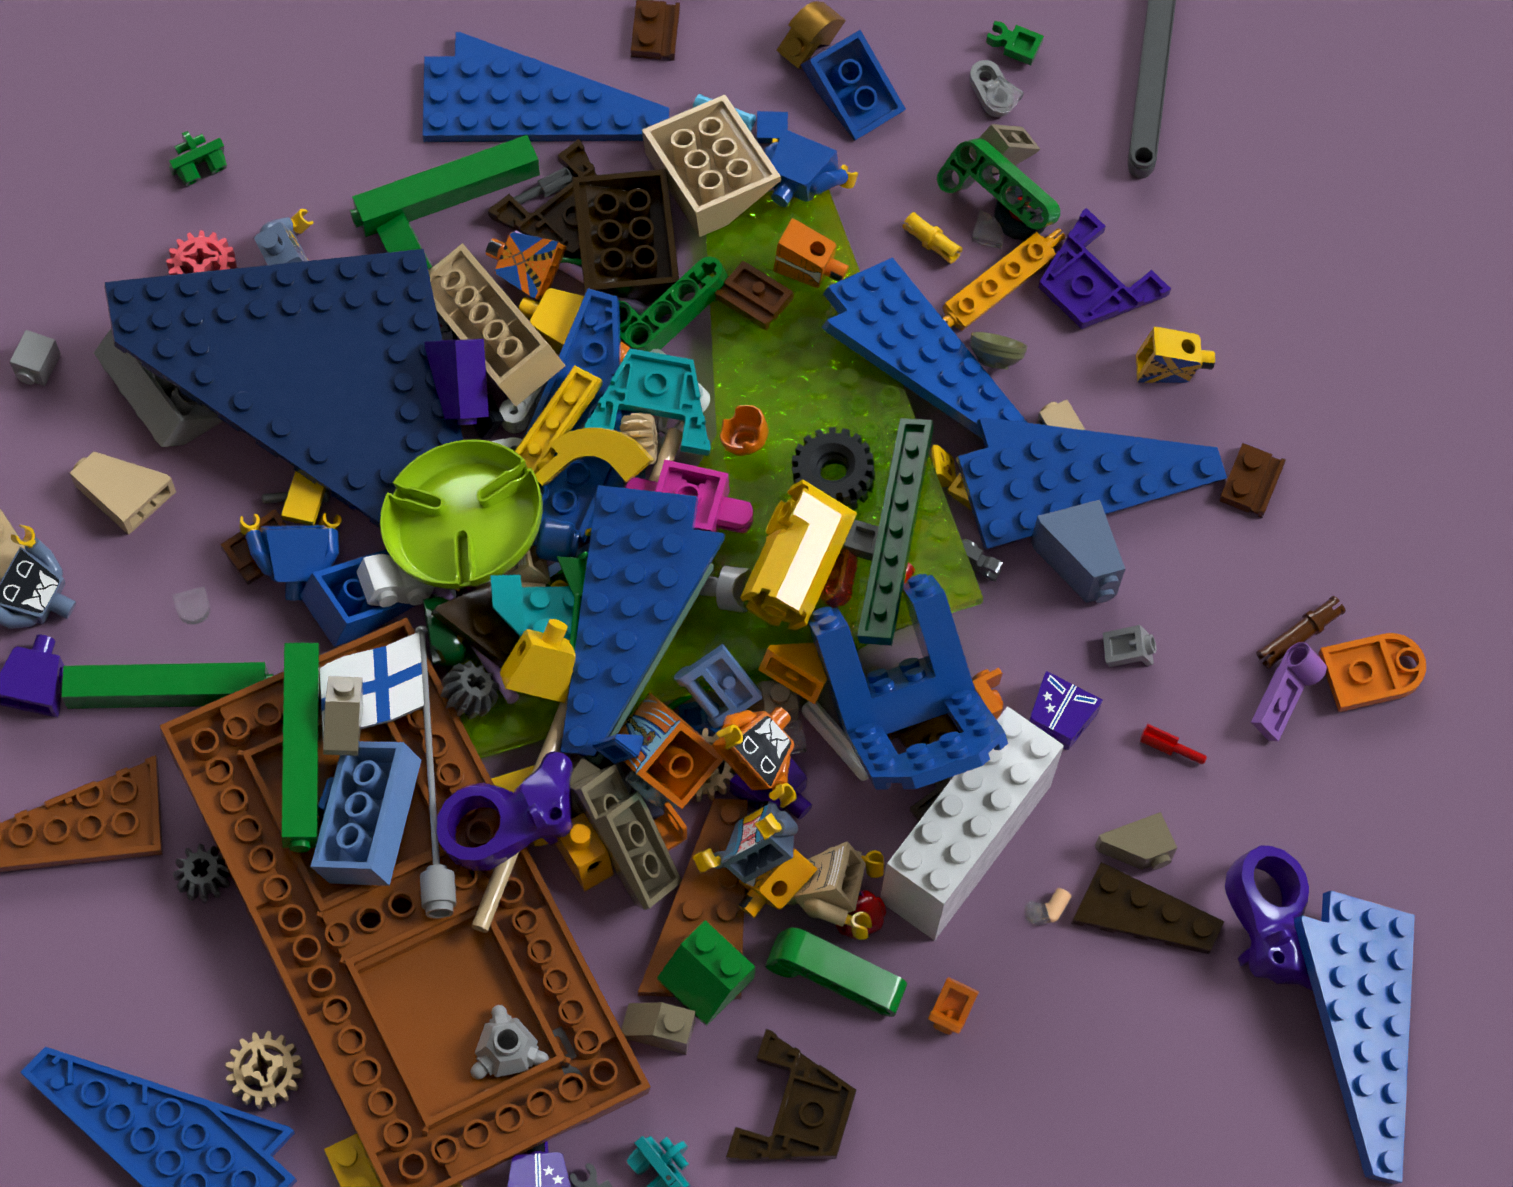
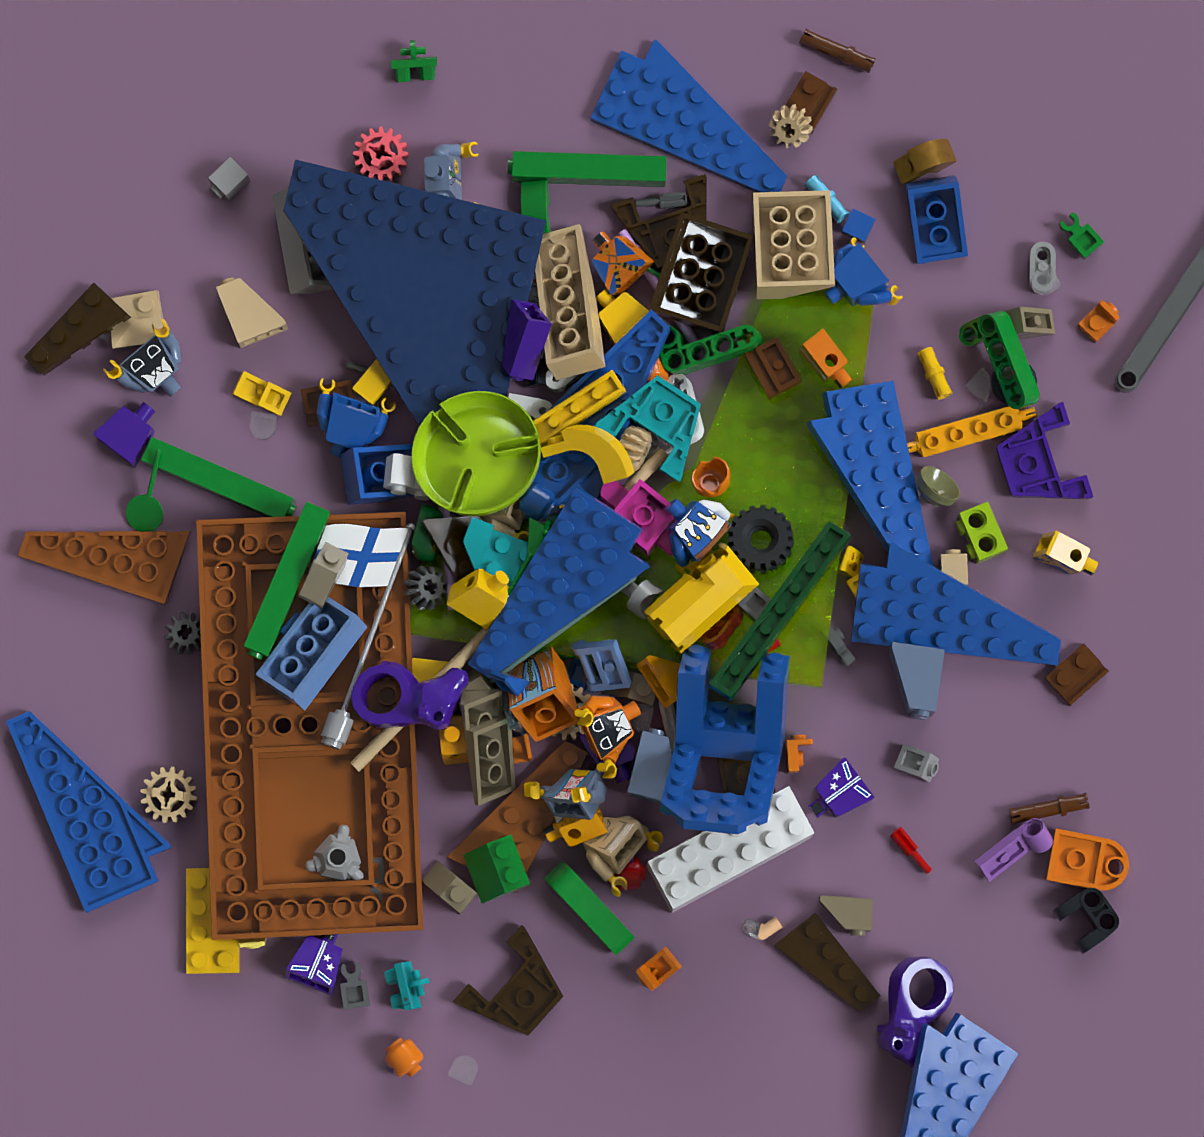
camera: 30 degrees right, 15 degrees up
(90, 756) = (143, 510): none -> green piece
(175, 572) = (261, 393): none -> yellow slope
(654, 45) = (799, 126): none -> tan gear
(755, 486) = (696, 529): none -> torso
(837, 782) = (650, 767): none -> sand blue slope
(1076, 370) = (988, 531): none -> lime brick
(1080, 115) = (1099, 320): none -> orange bracket
(1412, 724) = (1093, 915): none -> black piece

